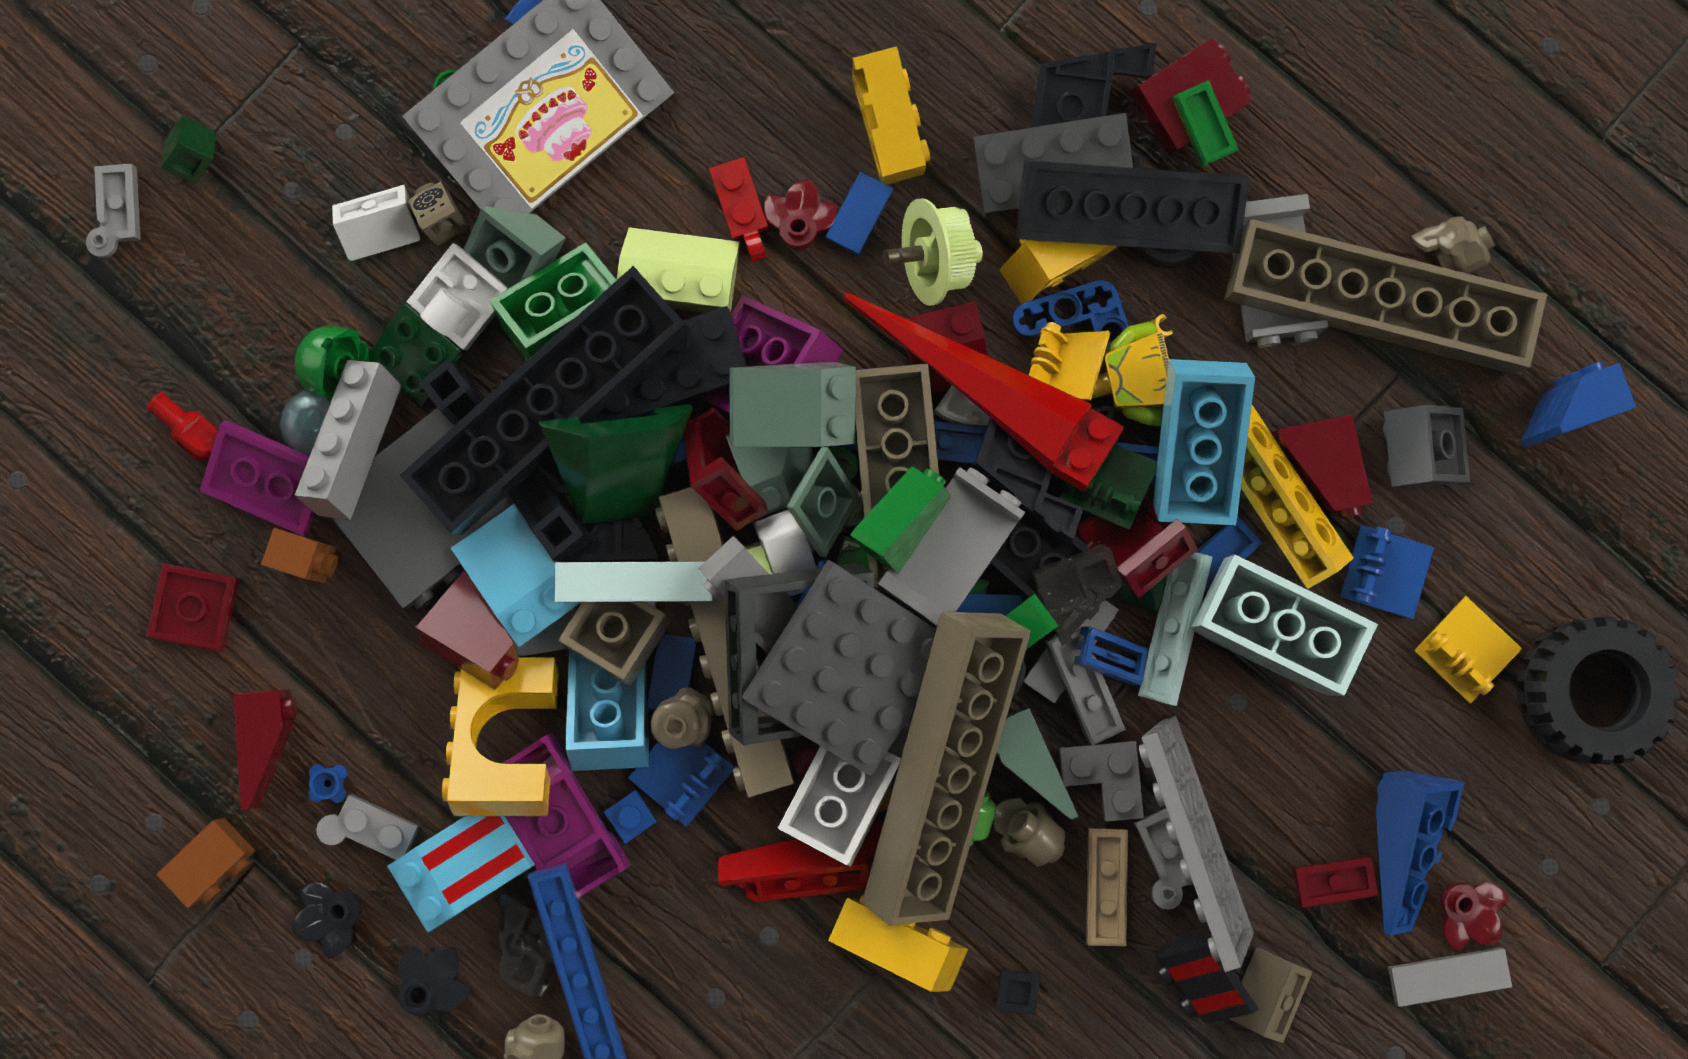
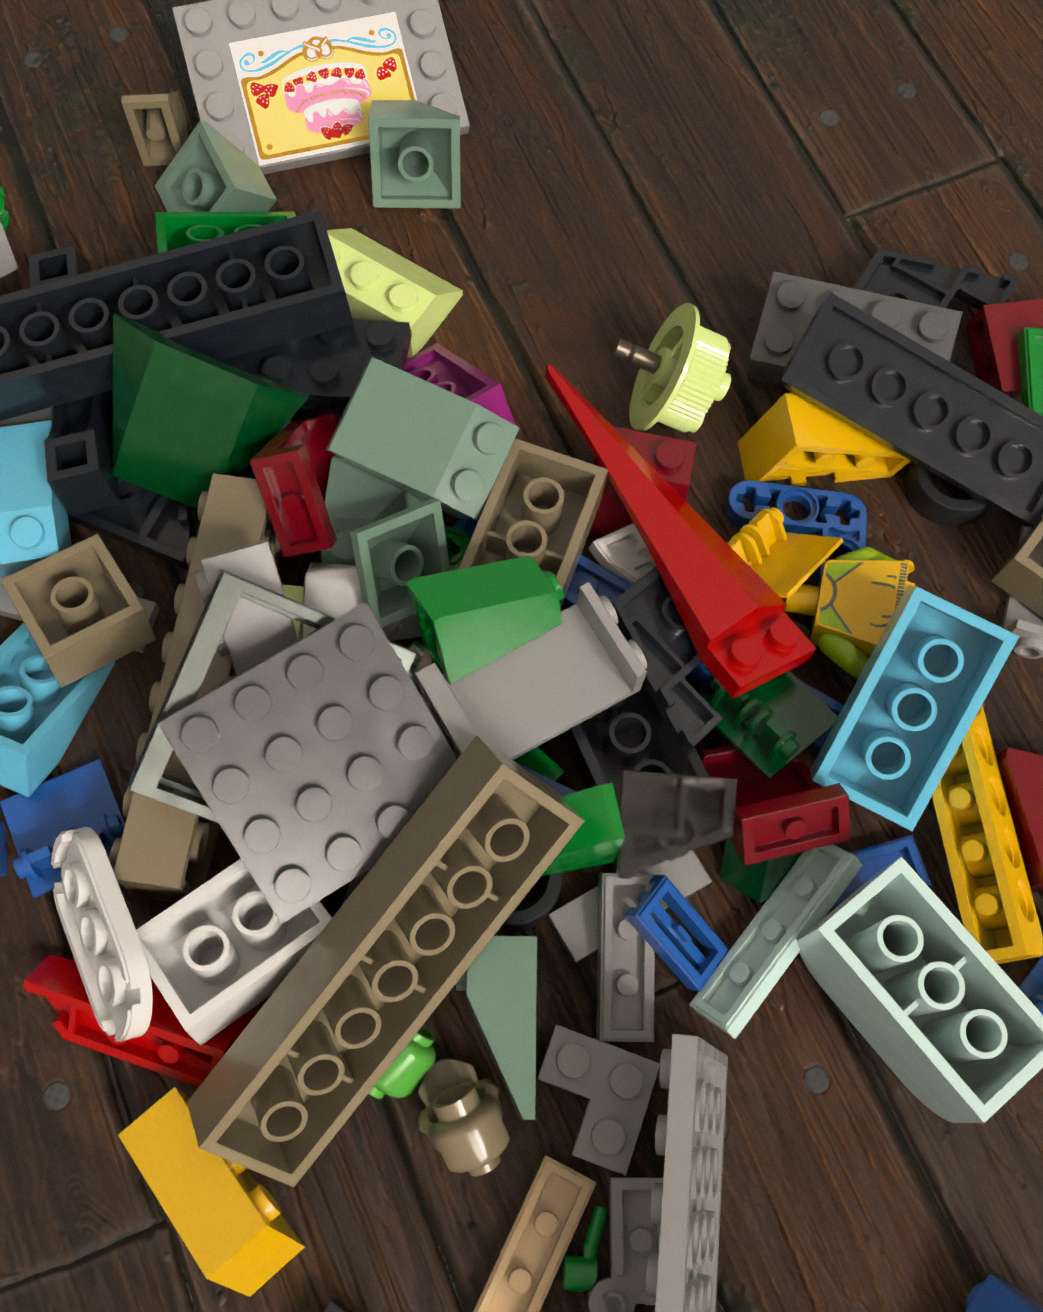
camera: 20 degrees right, 15 degrees down
(375, 223) = (86, 116): white panel -> none
(412, 351) = (51, 226): dark green hinge -> none
(457, 297) = (123, 208): white plate -> none
(630, 582) = (116, 546): light aqua tile -> none
(649, 147) = (414, 155): none -> sand green slope
(671, 668) = (121, 706): blue tile -> none
(683, 719) = (95, 755): dark tan head -> none
(740, 205) = (482, 257): red plate -> none
(756, 831) = (102, 935): none -> white tile
(799, 209) = (541, 292): dark red plate -> none
(859, 213) = (607, 318): blue tile -> none
(889, 116) = (688, 226): yellow wedge -> none
(1141, 884) = (581, 1271): none -> green hand

